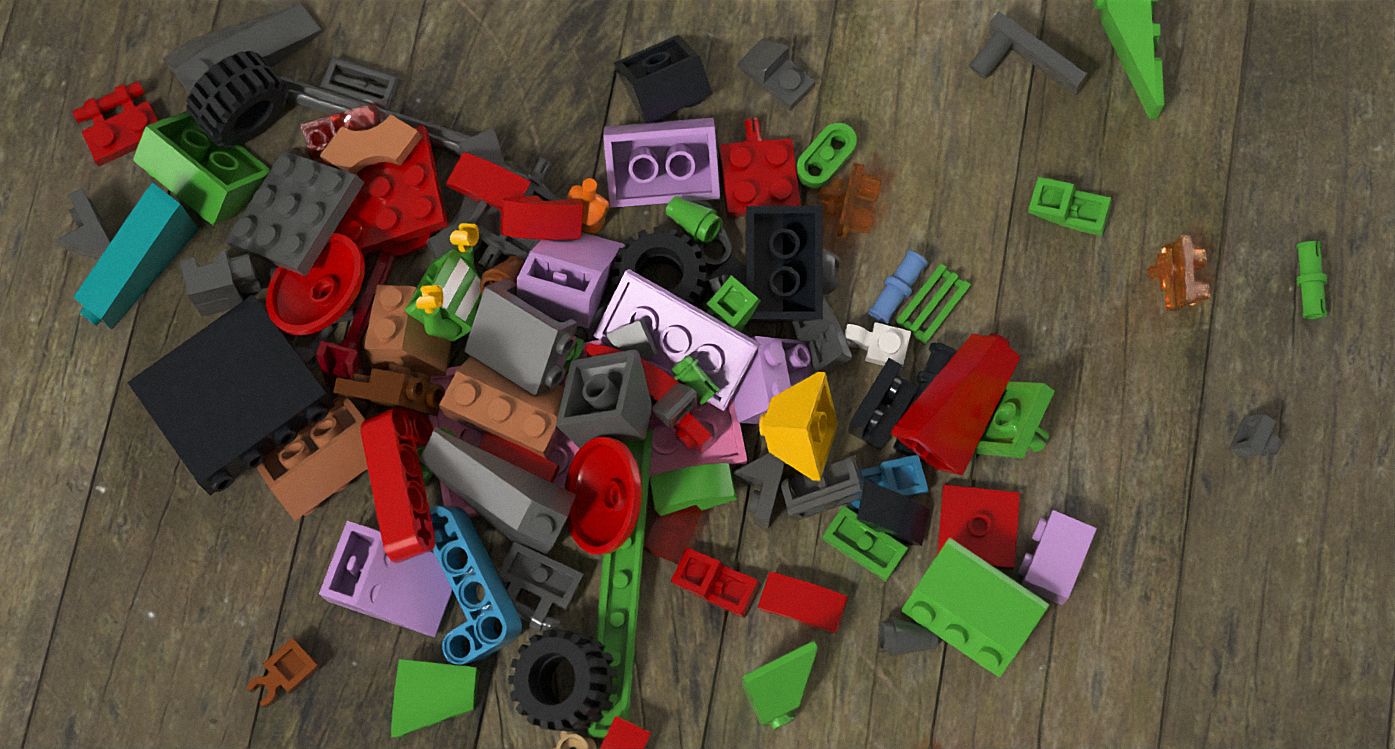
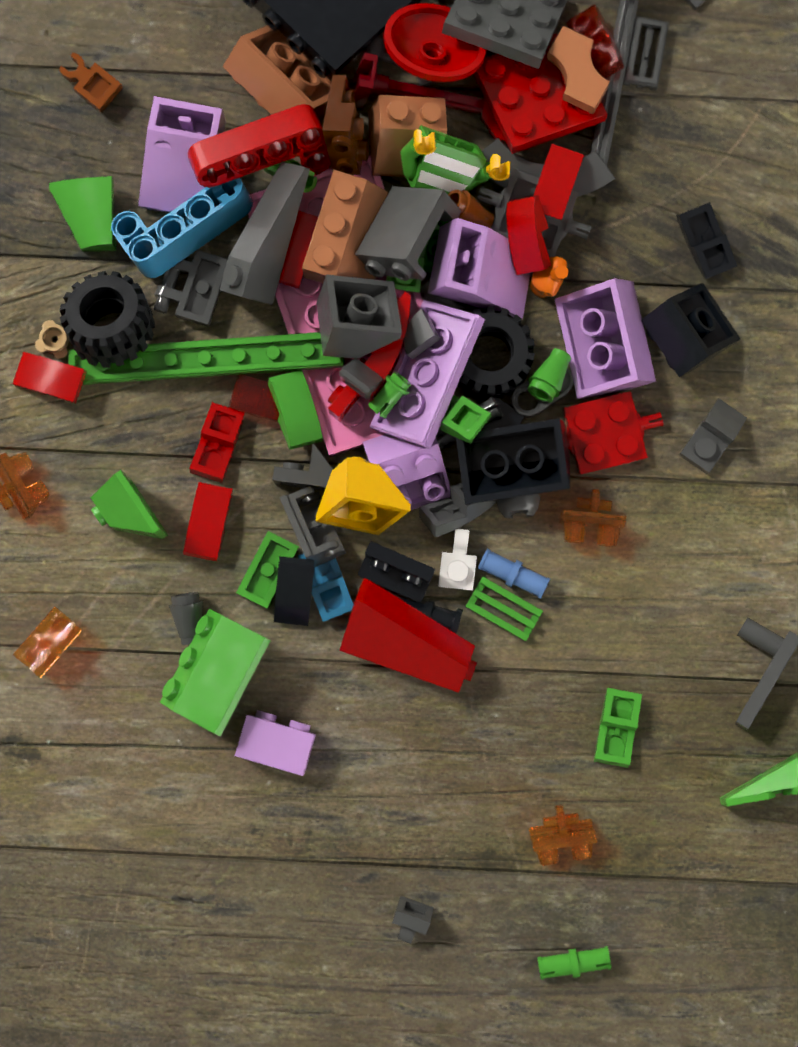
camera: 80 degrees right, 10 degrees up
(570, 54) = (706, 241): none -> black slope
(606, 495) = (269, 330): red dish -> none
(825, 157) = (635, 491): bright green plate -> none
(981, 522) = (298, 671): red plate -> none
(1016, 421) = (393, 693): bright green tile -> none

